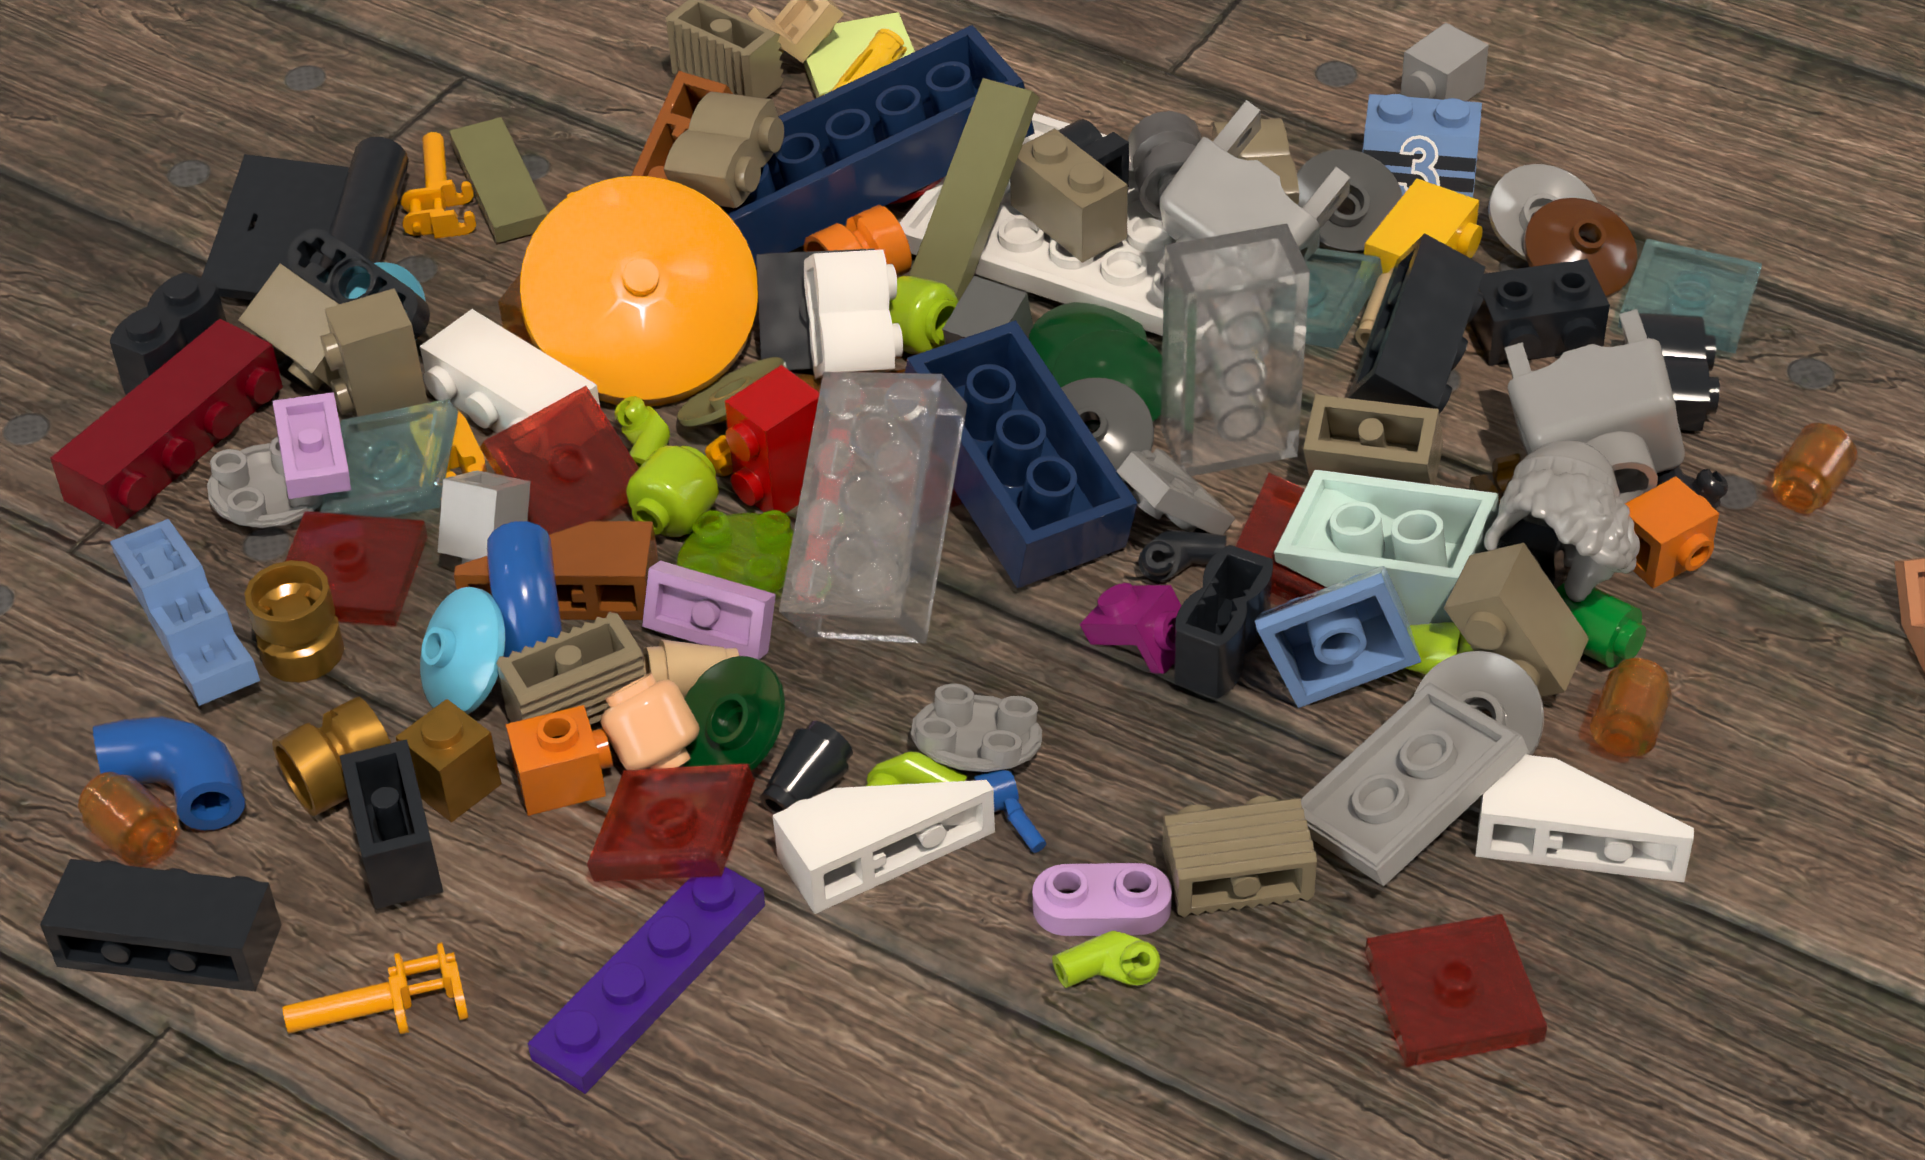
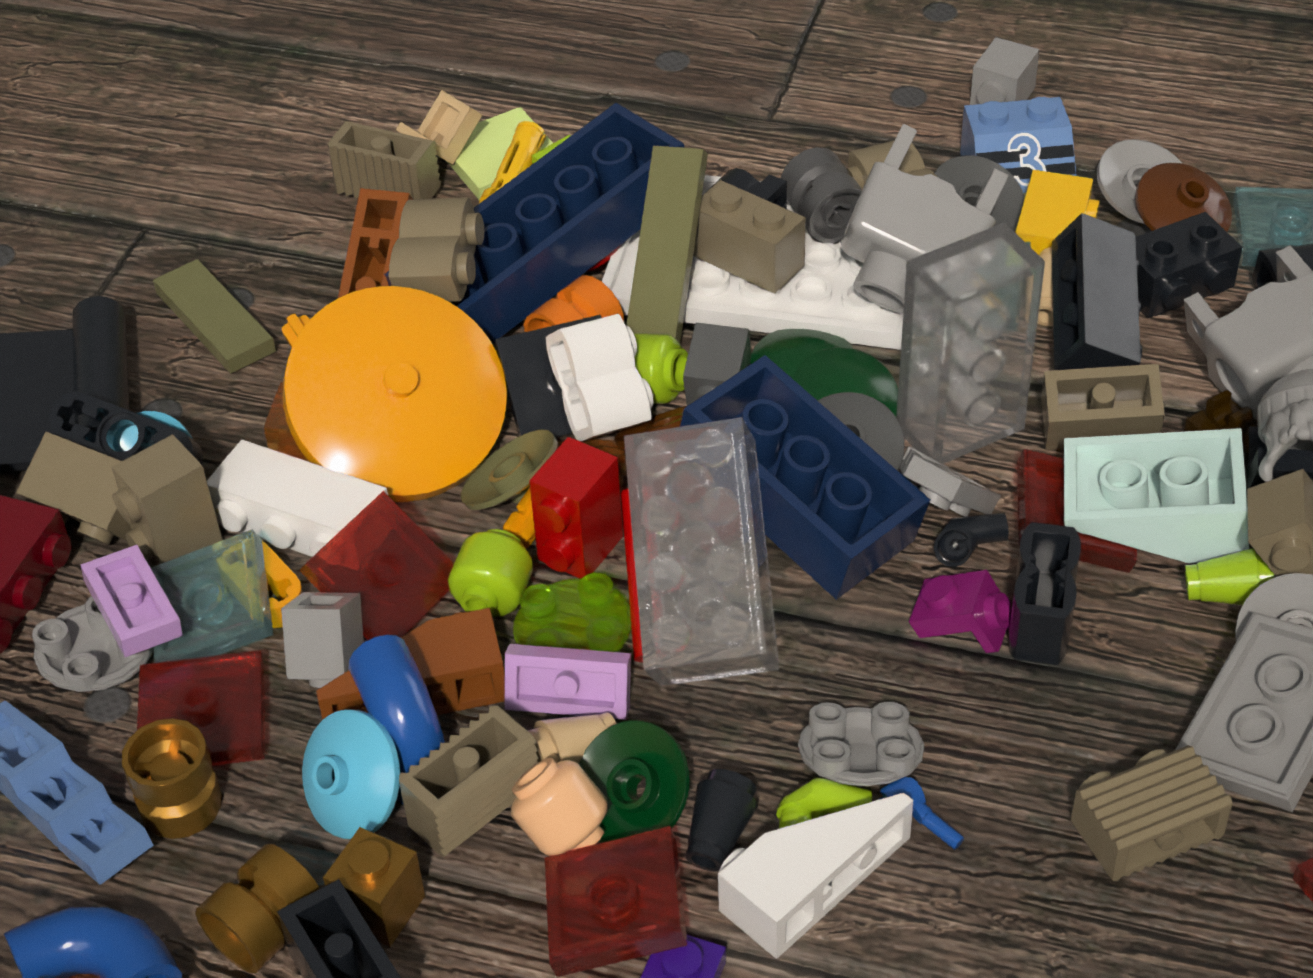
camera: 15 degrees left, 0 degrees up
(428, 204) = (161, 338): light orange piece -> none
(558, 759) = (479, 861): orange brick -> none
(641, 427) = (437, 521): lime arm -> none
(1101, 899) = (1044, 882): lavender plate -> none
(1110, 956) = (1075, 937): lime arm -> none
(1339, 637) = (1155, 582): medium blue slope -> none

